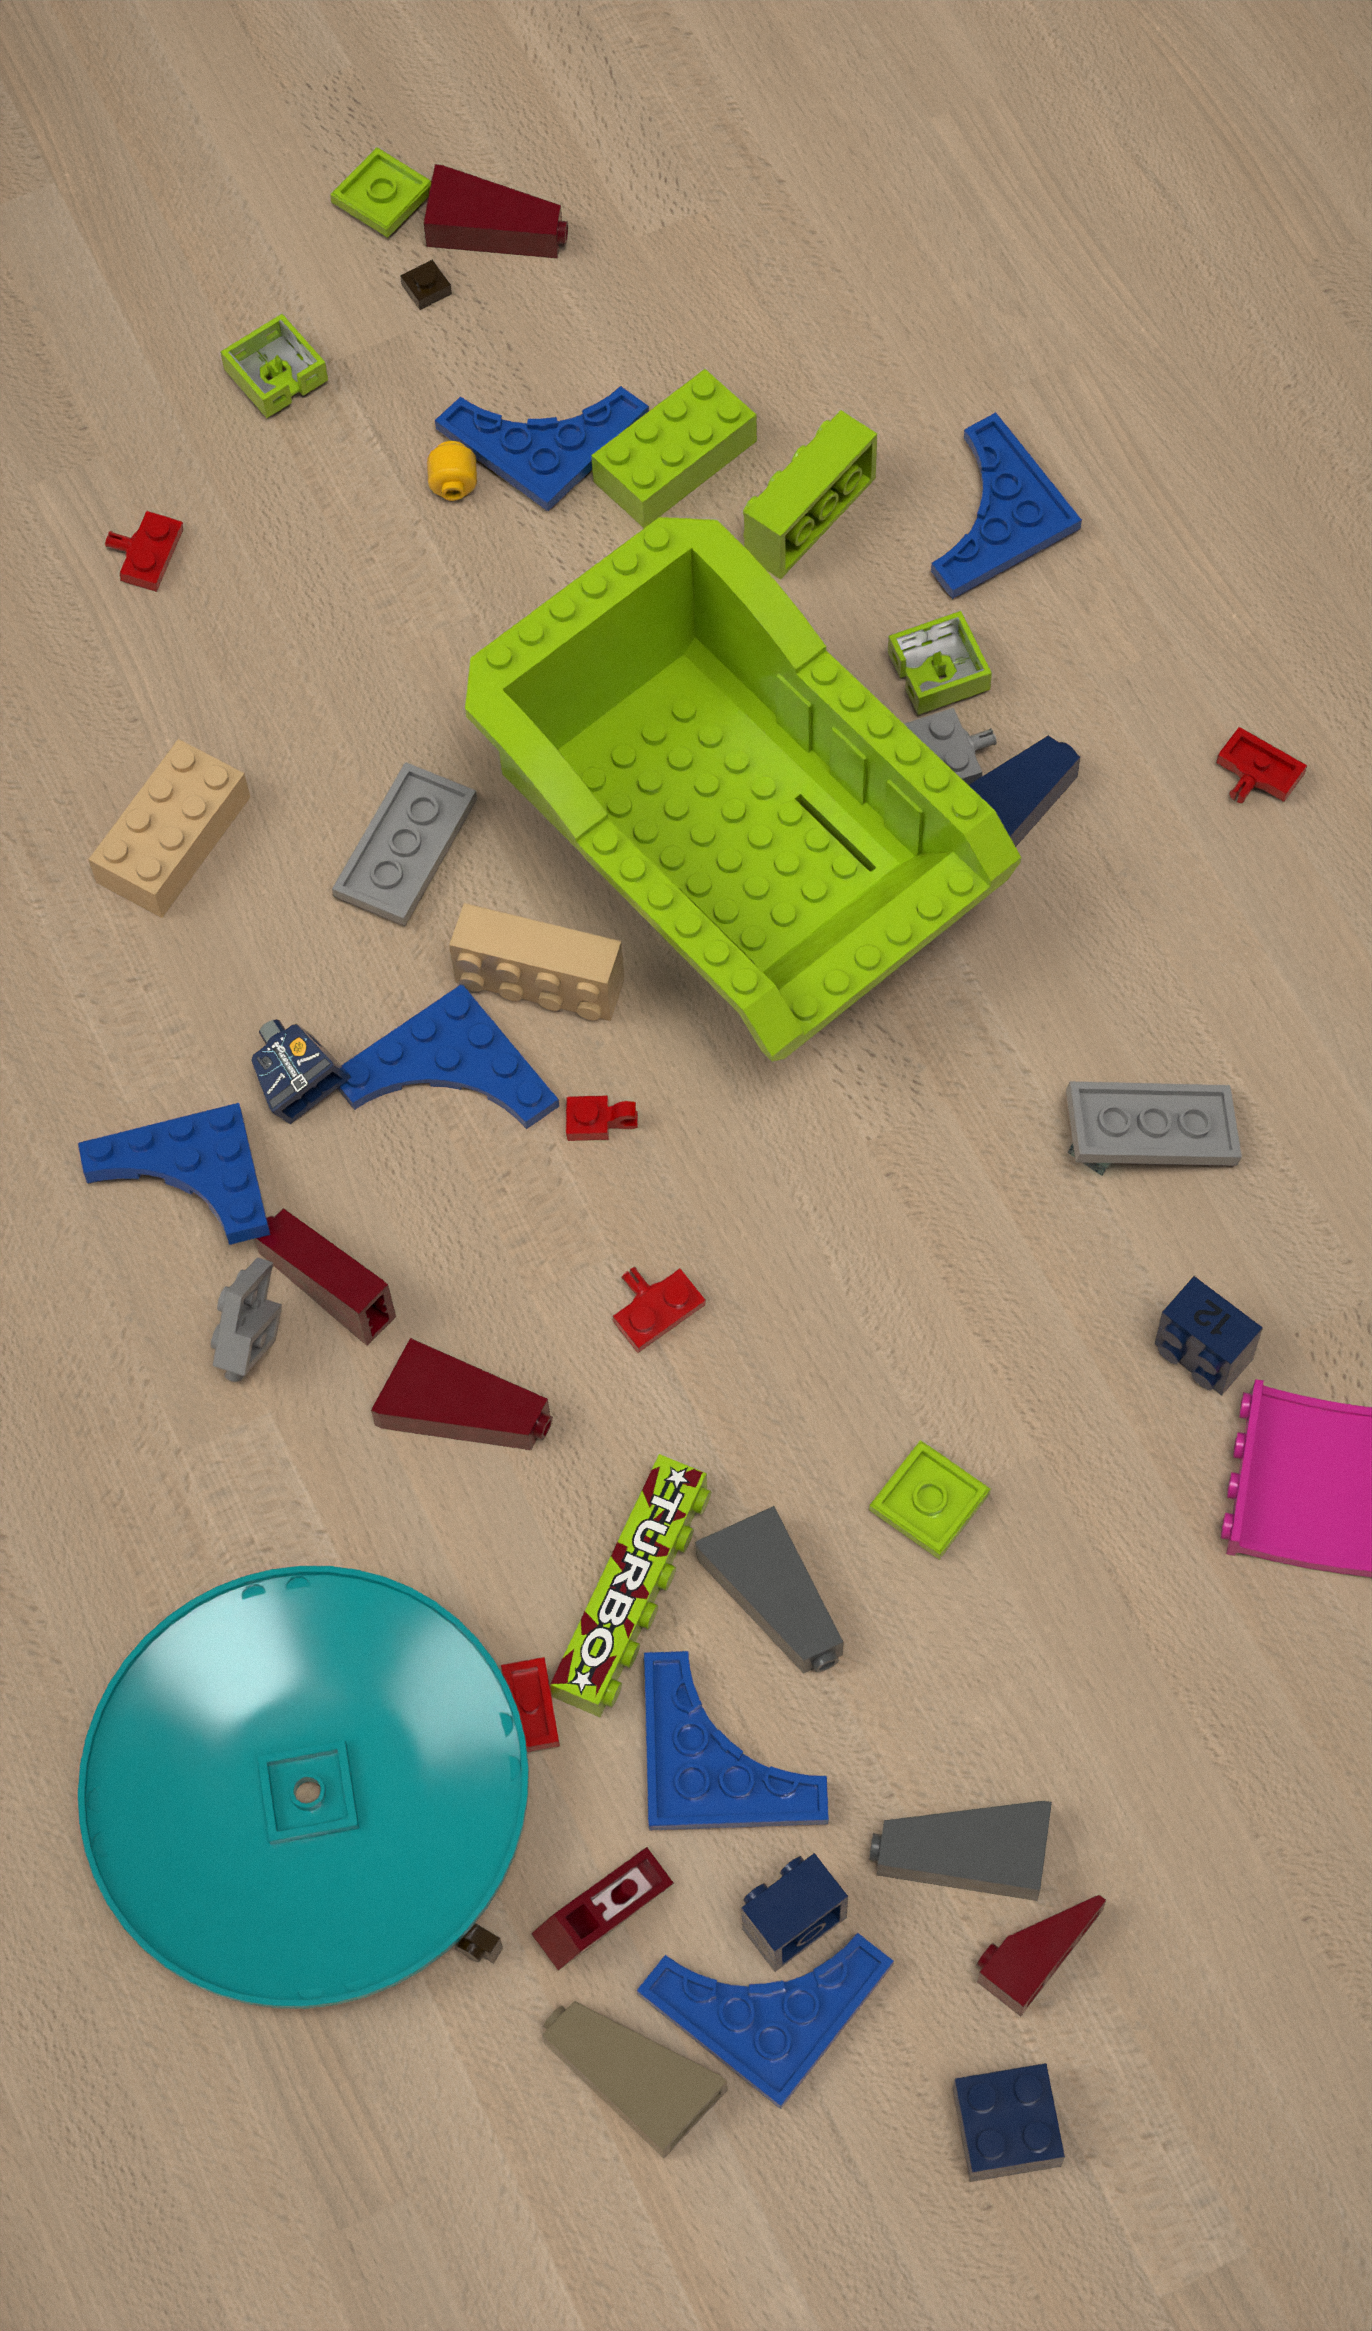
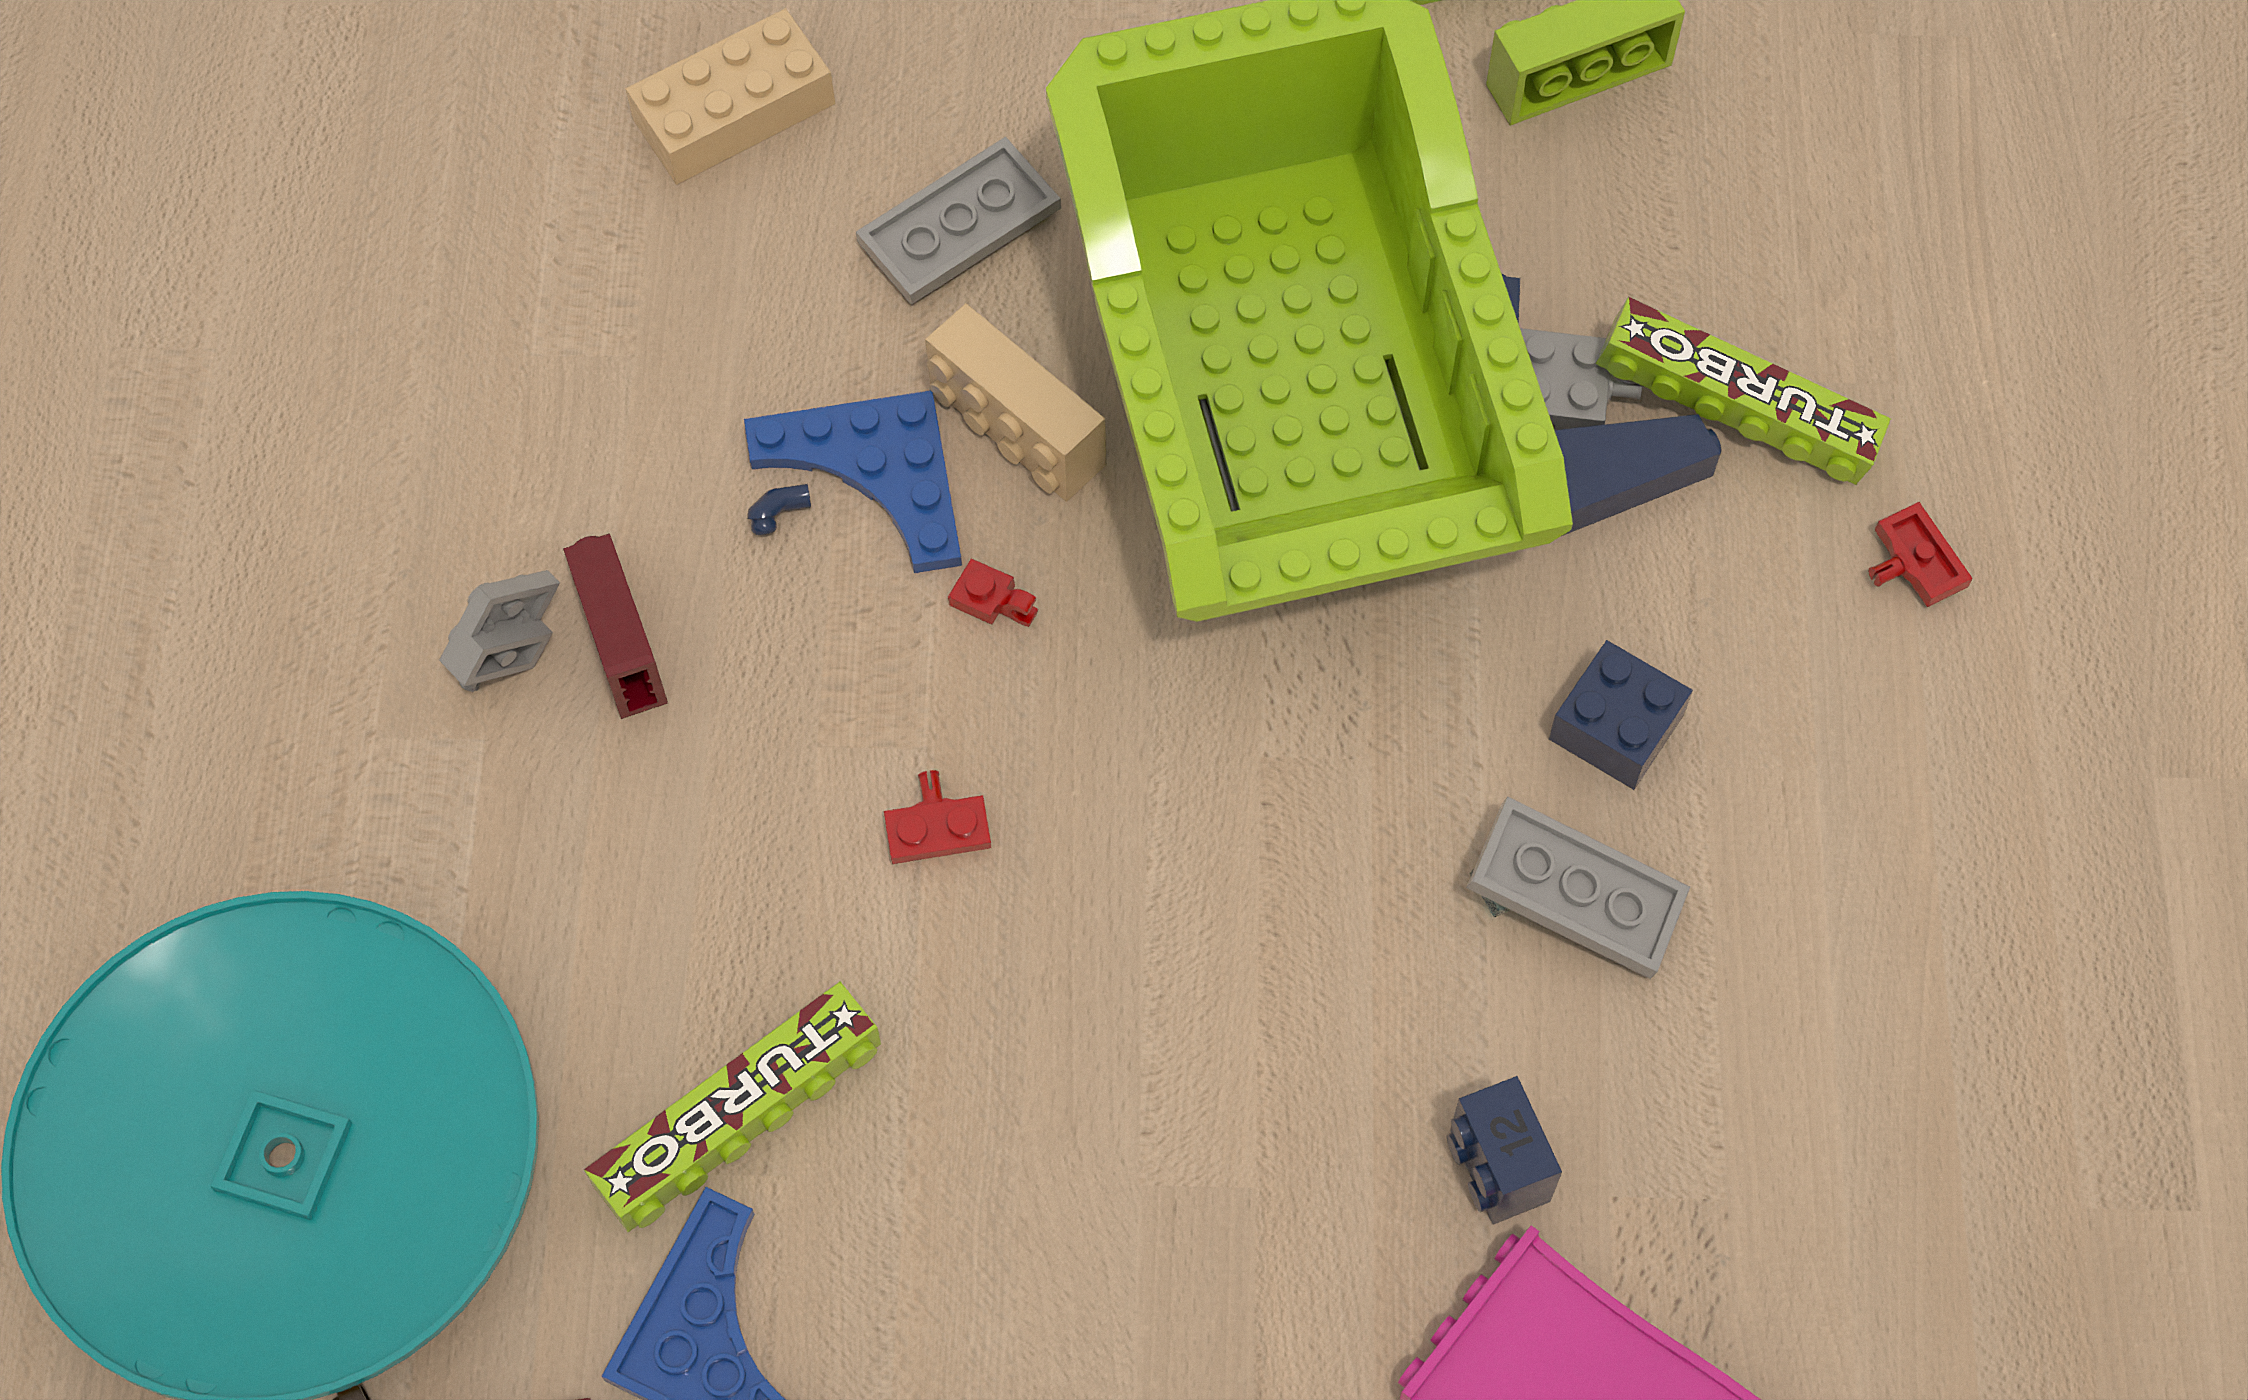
camera: 25 degrees right, 0 degrees up
(193, 1153) = (561, 438): blue plate -> none
(295, 1070) = (707, 399): dark blue torso -> none
(389, 1128) = (772, 503): none -> dark blue arm
(458, 1401) = (669, 818): dark red slope -> none
(533, 1698) = (559, 1181): red plate -> none
(771, 1584) = (883, 1180): dark grey slope -> none
(929, 1499) = (1104, 1177): lime plate -> none
(953, 653) = (1639, 263): lime piece -> none
(1016, 514) = (1799, 170): blue plate -> none
(1070, 703) = (1743, 391): none -> lime brick
(1112, 984) = (1620, 714): none -> dark blue brick

